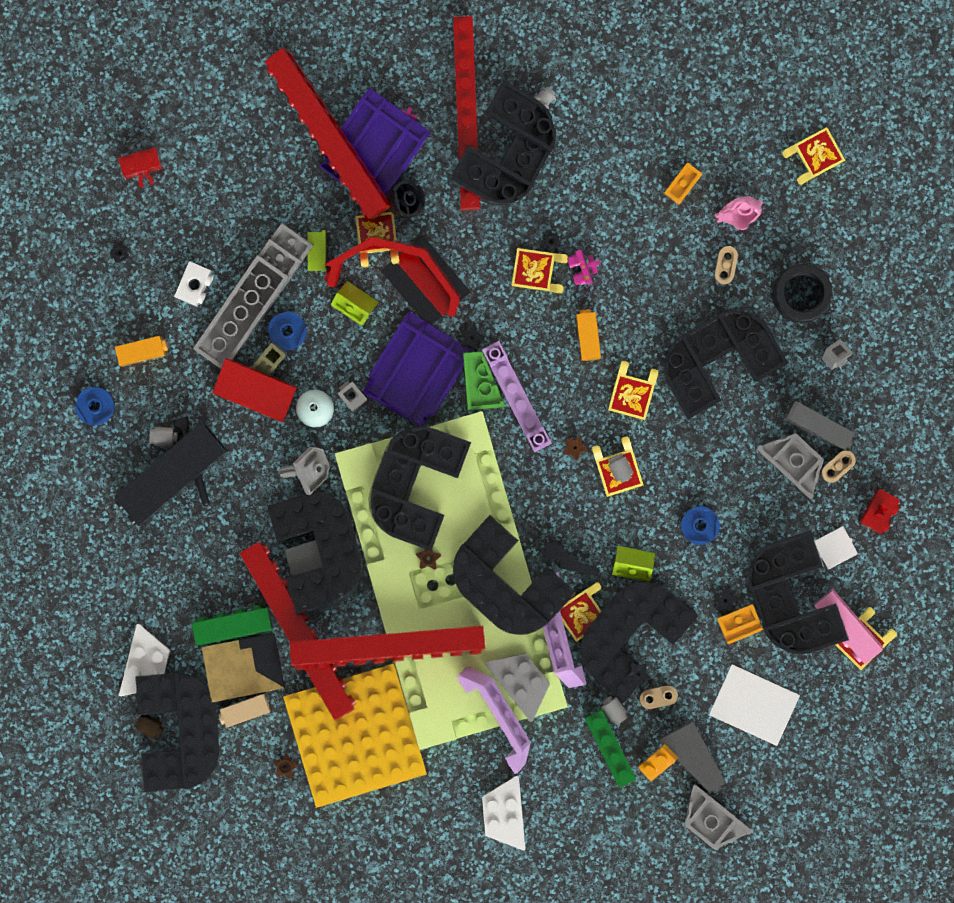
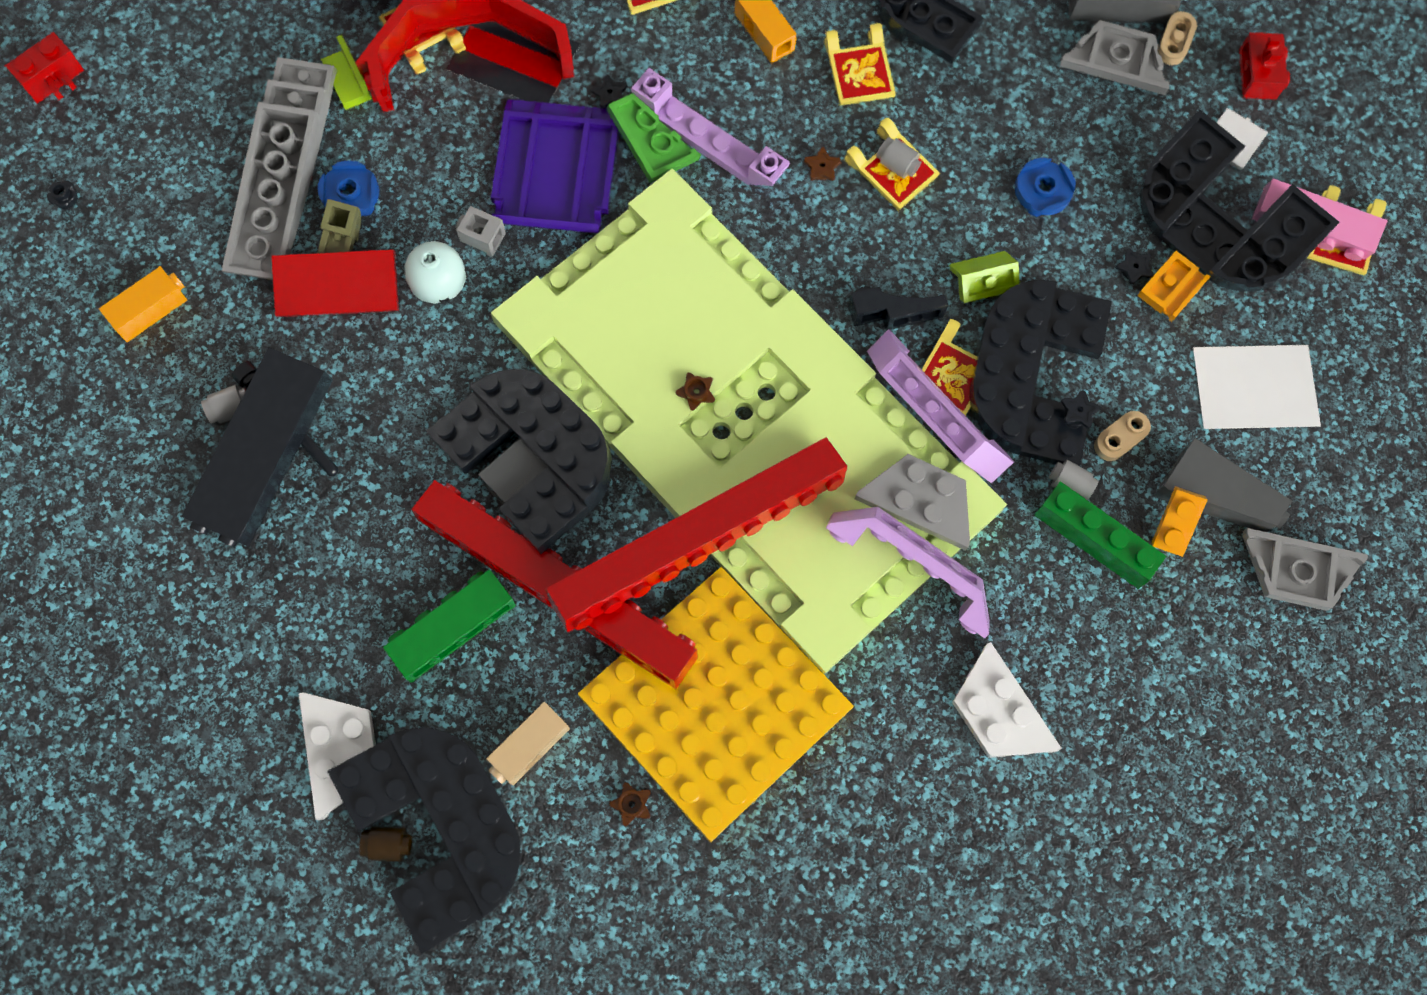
camera: 30 degrees left, 15 degrees down
(97, 395) = (113, 424): blue plate -> none
(192, 273) = (178, 173): white brick -> none
(243, 667) = (494, 681): pearl gold sticker -> none
(310, 468) = (462, 346): light grey piece -> none
(354, 303) = (426, 119): lime panel -> none
(397, 477) = (594, 295): black plate -> none
(493, 595) = (822, 390): black plate -> none

